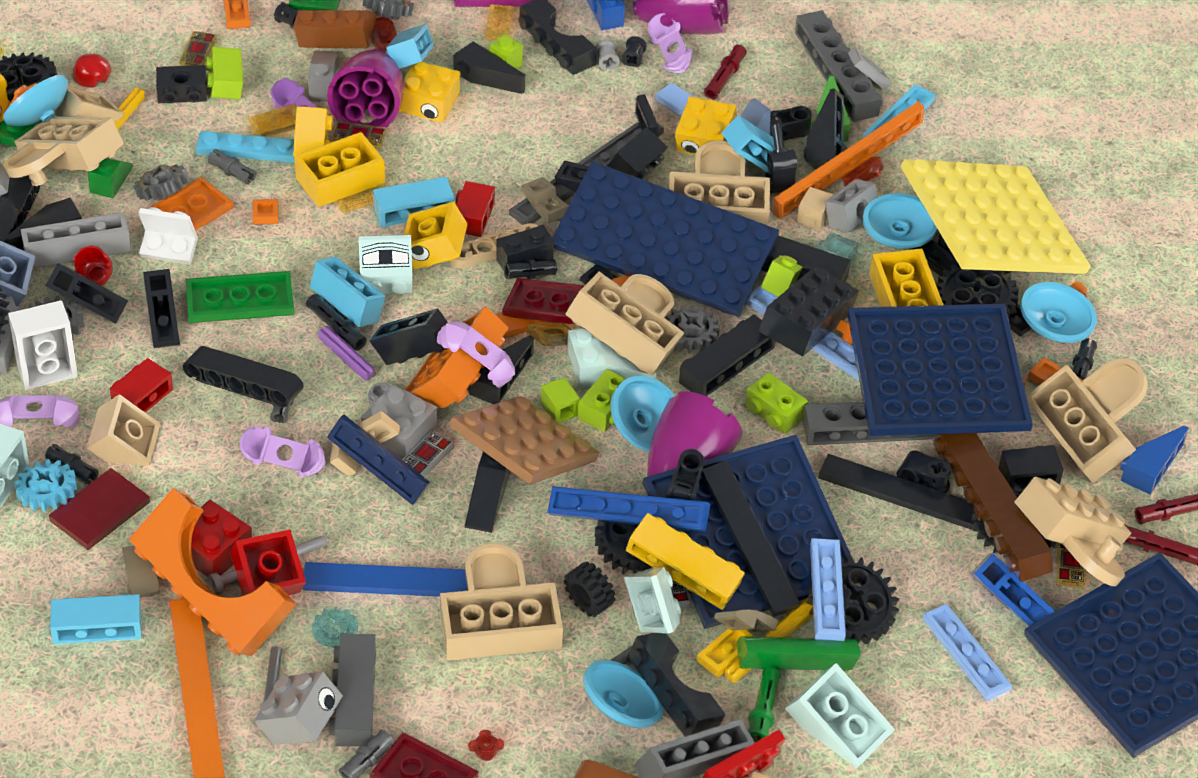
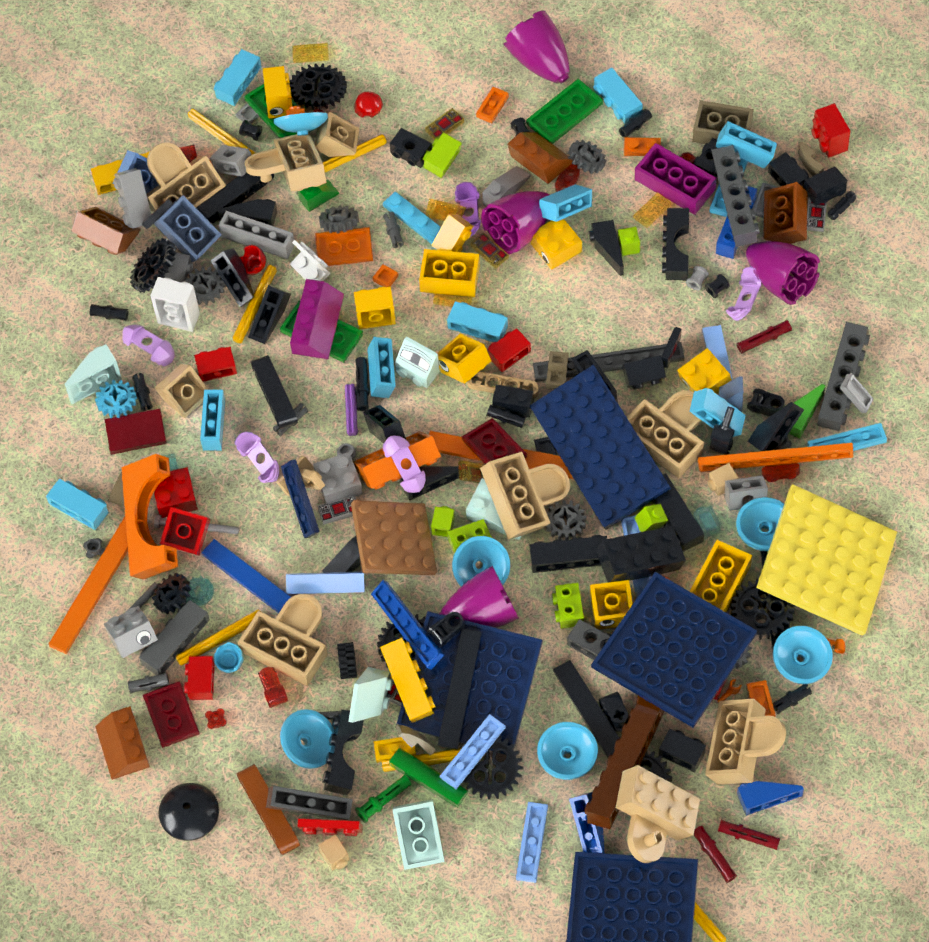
camera: 45 degrees right, 15 degrees up
(132, 312) = (254, 304): none -> yellow axle
(158, 648) = (88, 545): none -> dark grey plate
(193, 441) = (212, 420): none -> medium azure brick
(227, 282) = (316, 319): none -> magenta slope
(287, 238) = (374, 307): none -> yellow brick
(311, 640) = (171, 593): none -> black gear
(407, 660) = (215, 639): none -> yellow axle
(427, 712) = (200, 678): none -> red brick
(443, 668) = (228, 657): none -> medium azure hair
(482, 531) = (325, 582): none -> light blue tile
(530, 675) = (273, 690): none -> clear red piece
(822, 373) = (610, 603): none -> yellow brick
(922, 525) = (570, 739): none -> medium azure dish

